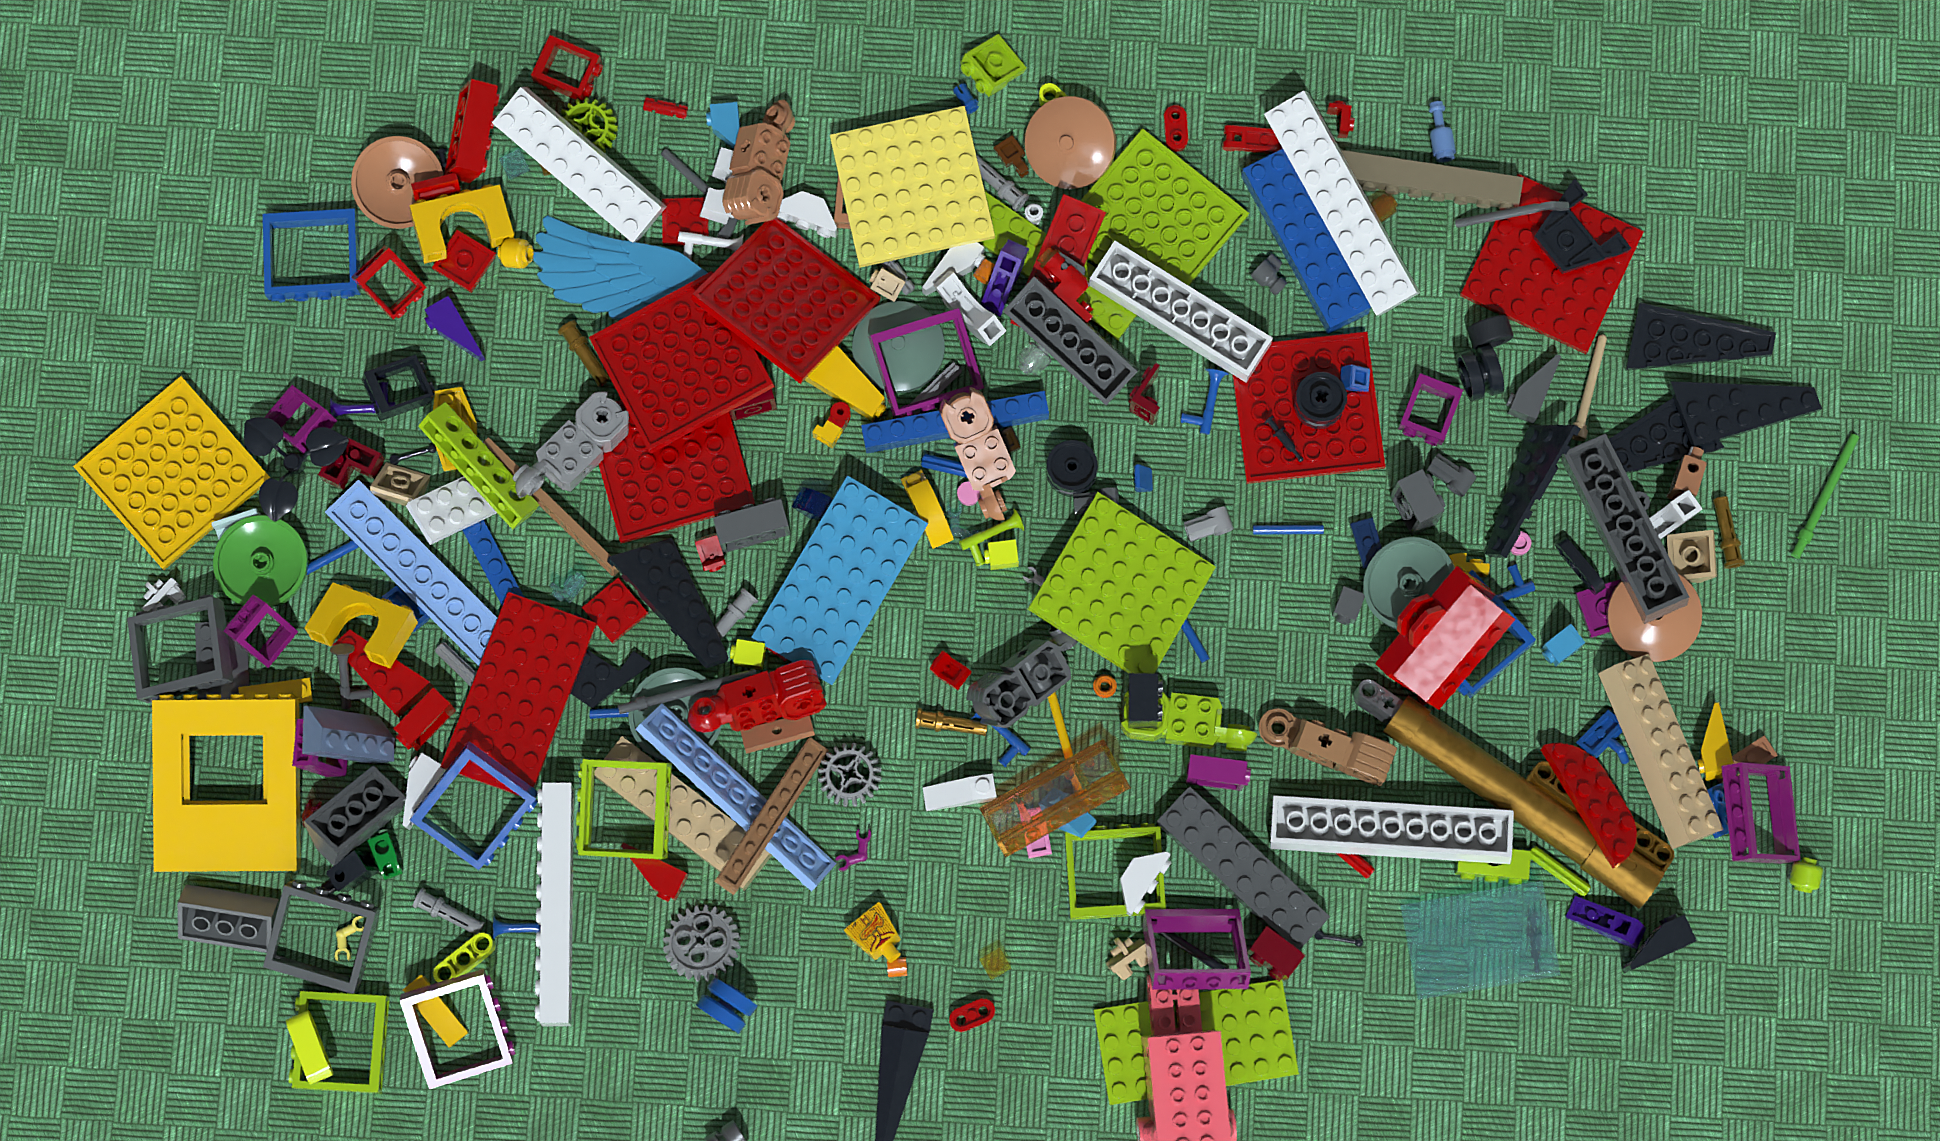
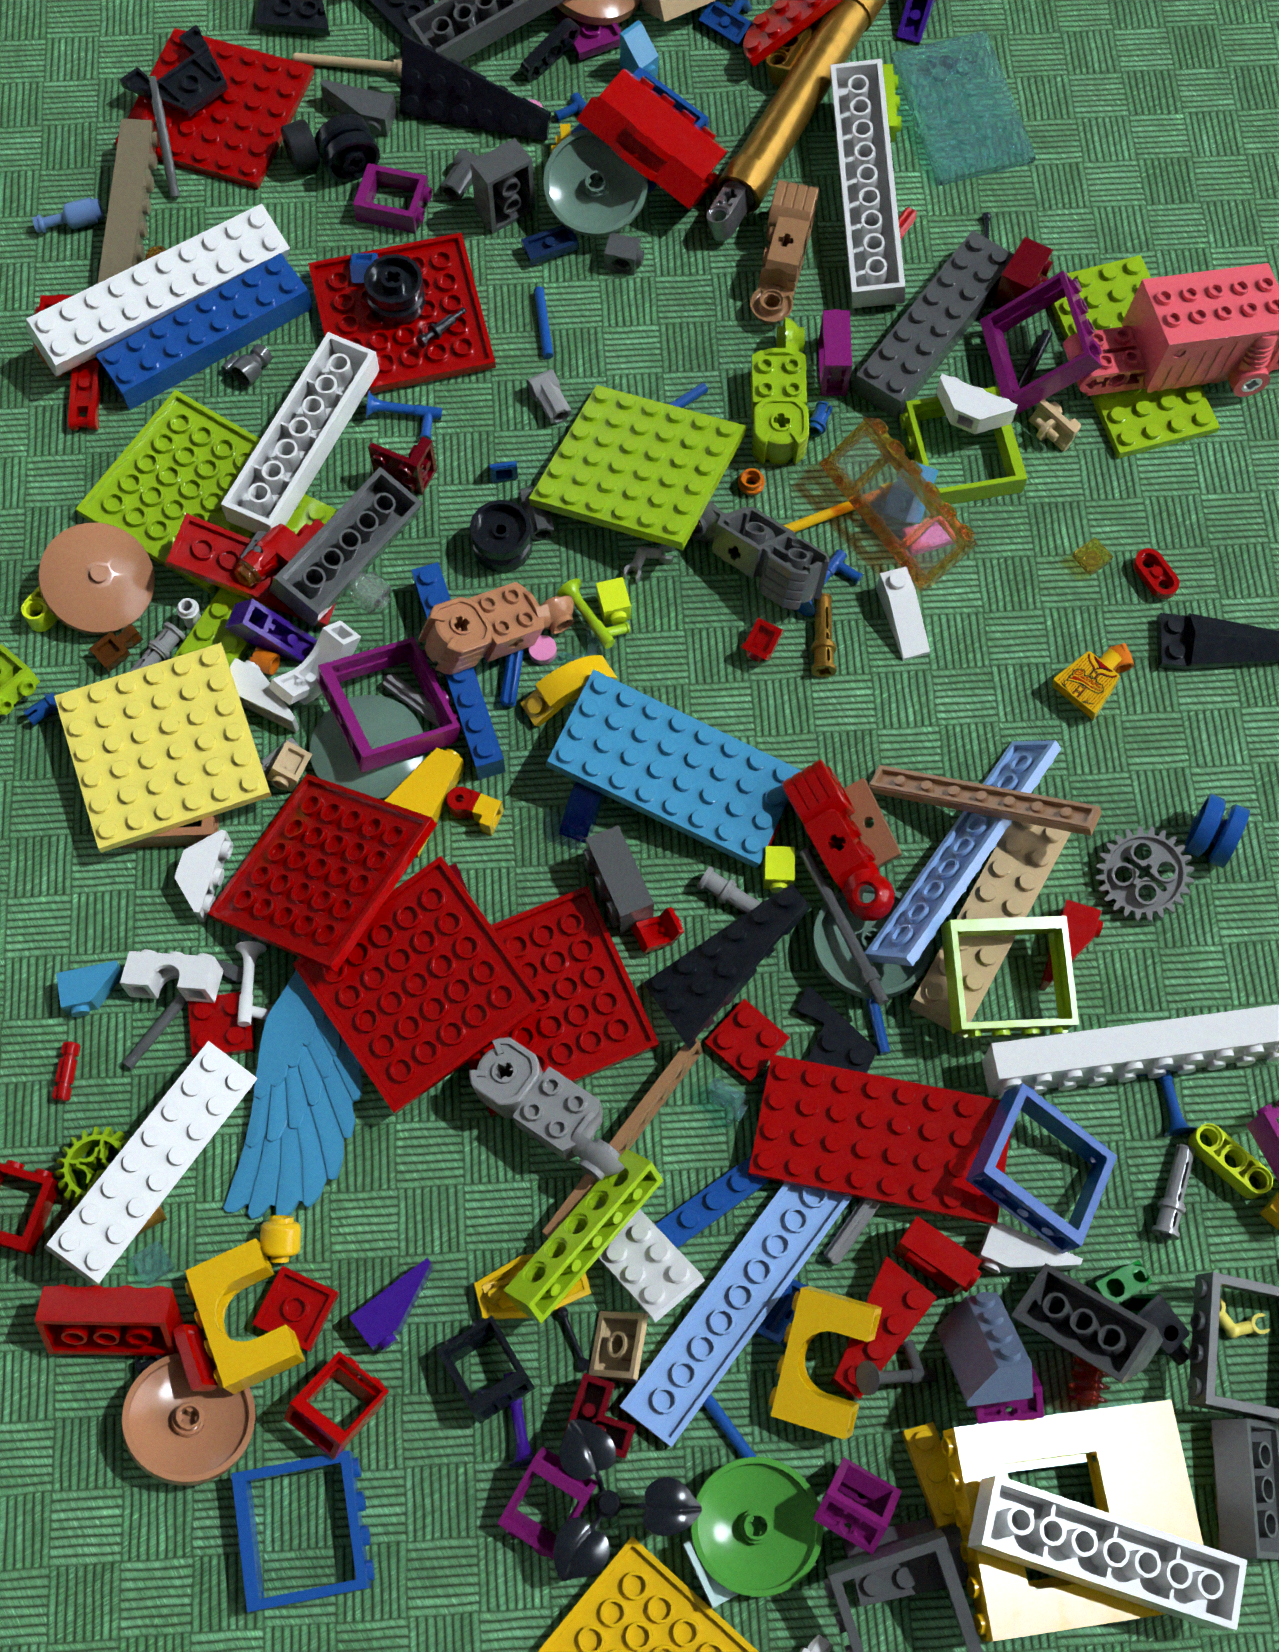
camera: 100 degrees left, 10 degrees down
(193, 789) = (1108, 1553): none -> white brick
(579, 345) = (400, 1136): pearl gold pin -> none
(758, 167) = (174, 931): nougat brick -> none
(860, 780) = (882, 727): light grey gear -> none
(862, 854) = (993, 713): magenta arm -> none
(1143, 700) = (776, 408): black brick -> none
(1159, 753) = (819, 419): none -> blue pin
(1175, 127) = (72, 479): red plate -> none
(1559, 871) = (879, 41): lime axle -> none

